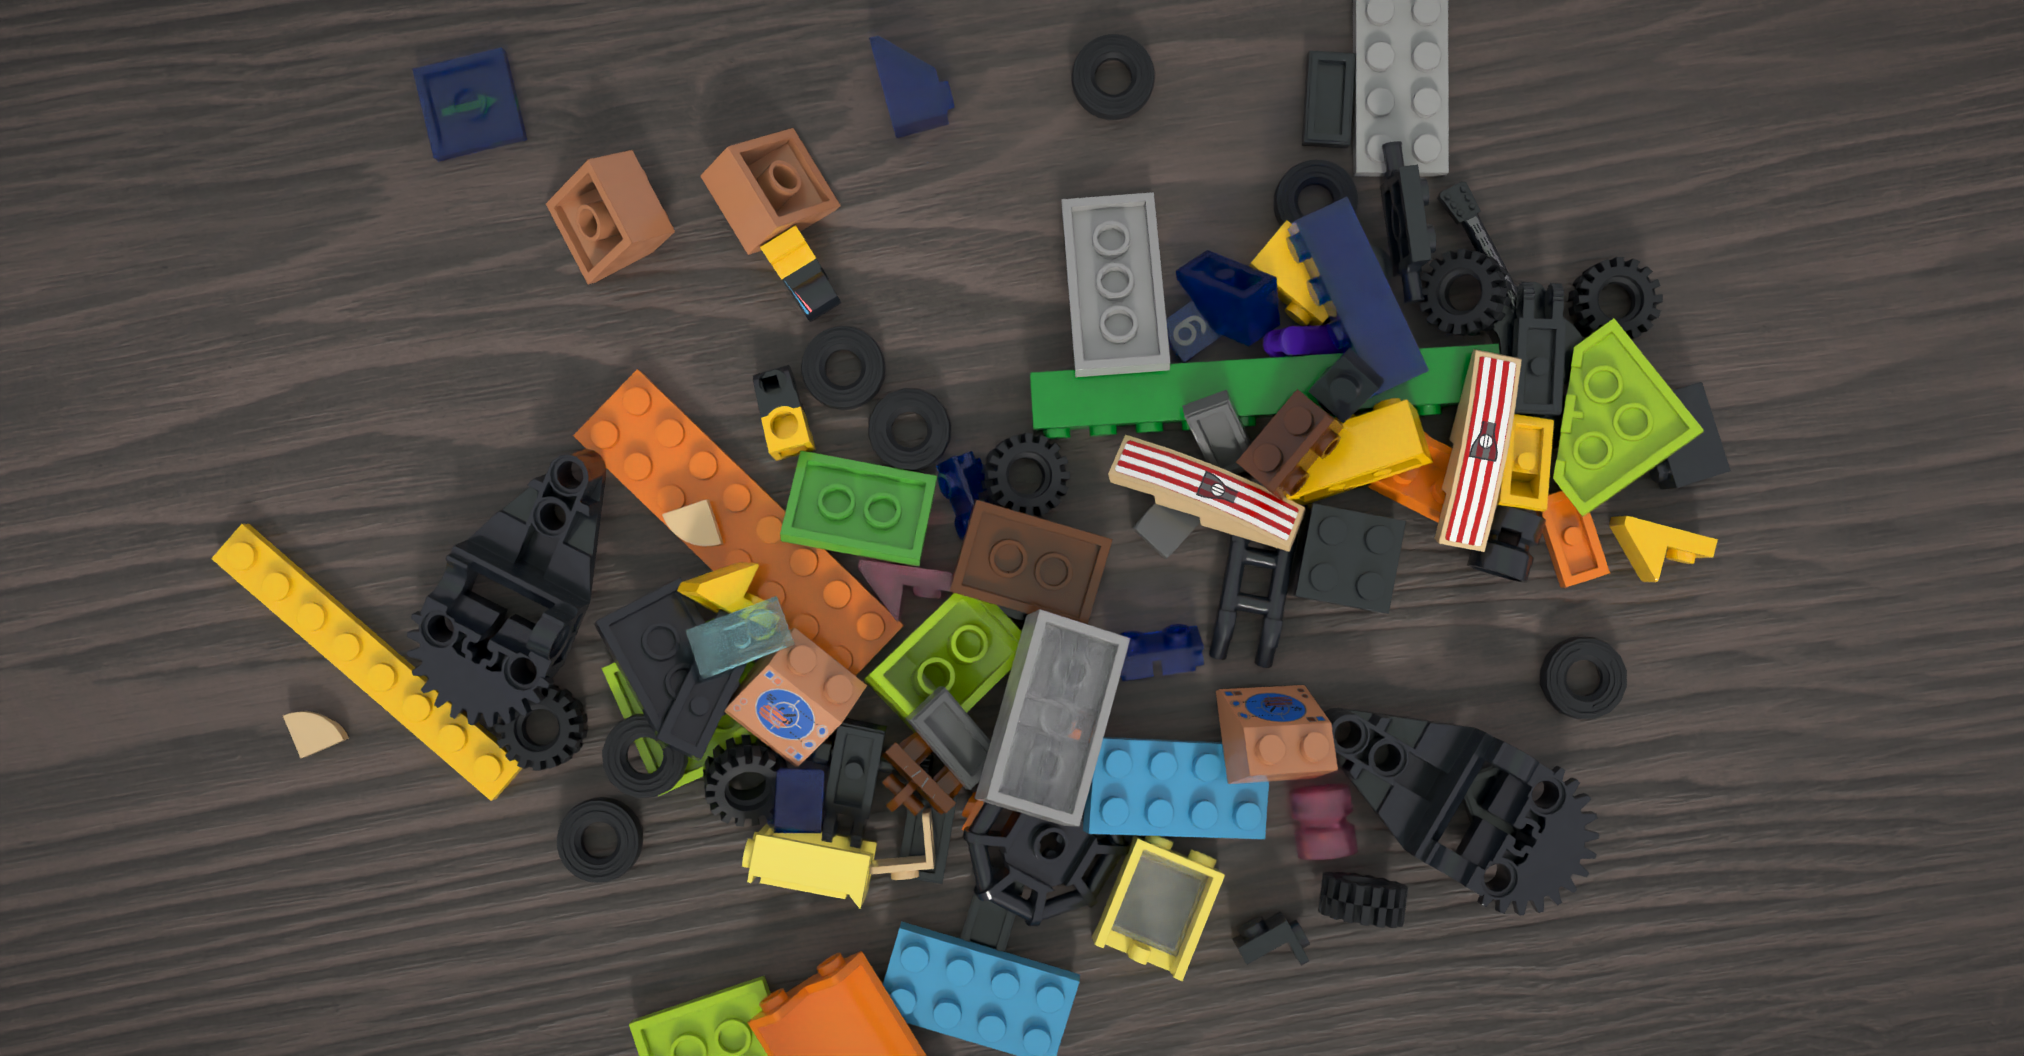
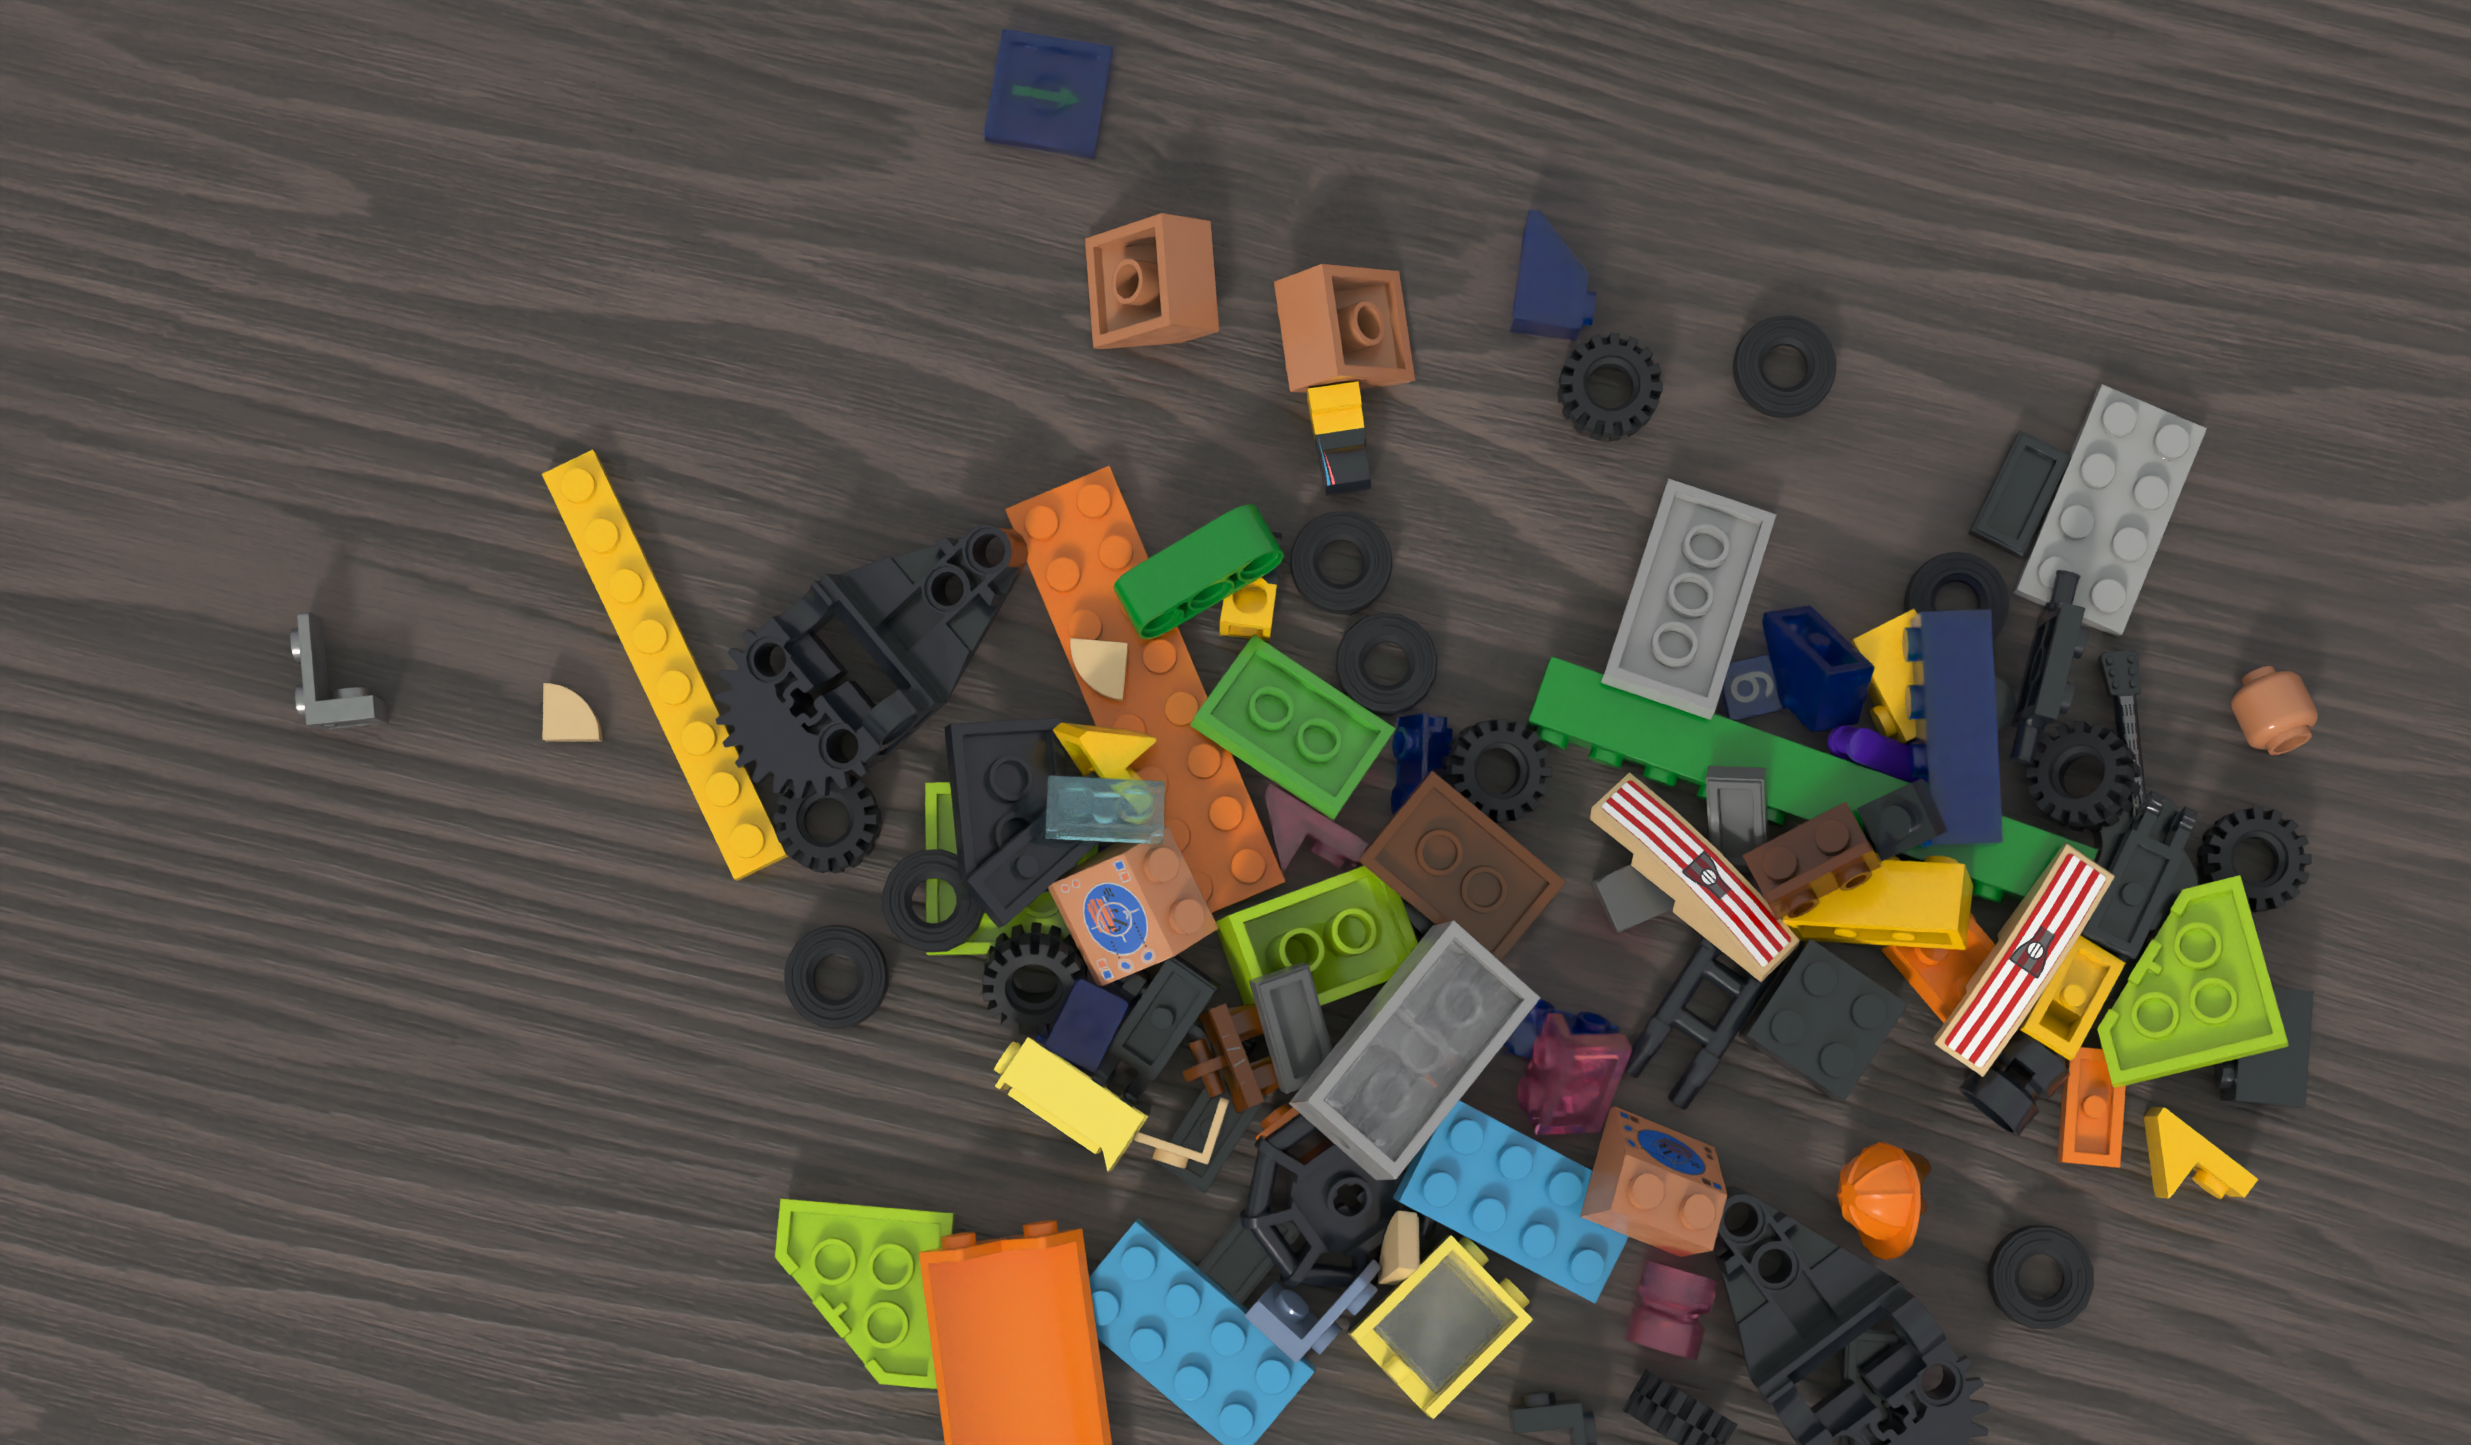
camera: 25 degrees right, 5 degrees down
(112, 798) = (349, 705): none -> flat silver bracket
(735, 422) = (1198, 571): none -> green beam
(978, 122) = (1624, 356): none -> black tyre
(1052, 954) = (1290, 1325): none -> sand blue bracket
(1104, 865) = (1400, 1249): none -> tan tile
(1178, 684) = (1571, 1078): none -> clear pink bracket
(1446, 671) = (1884, 1197): none -> orange piece
(1585, 181) = (2274, 710): none -> nougat head

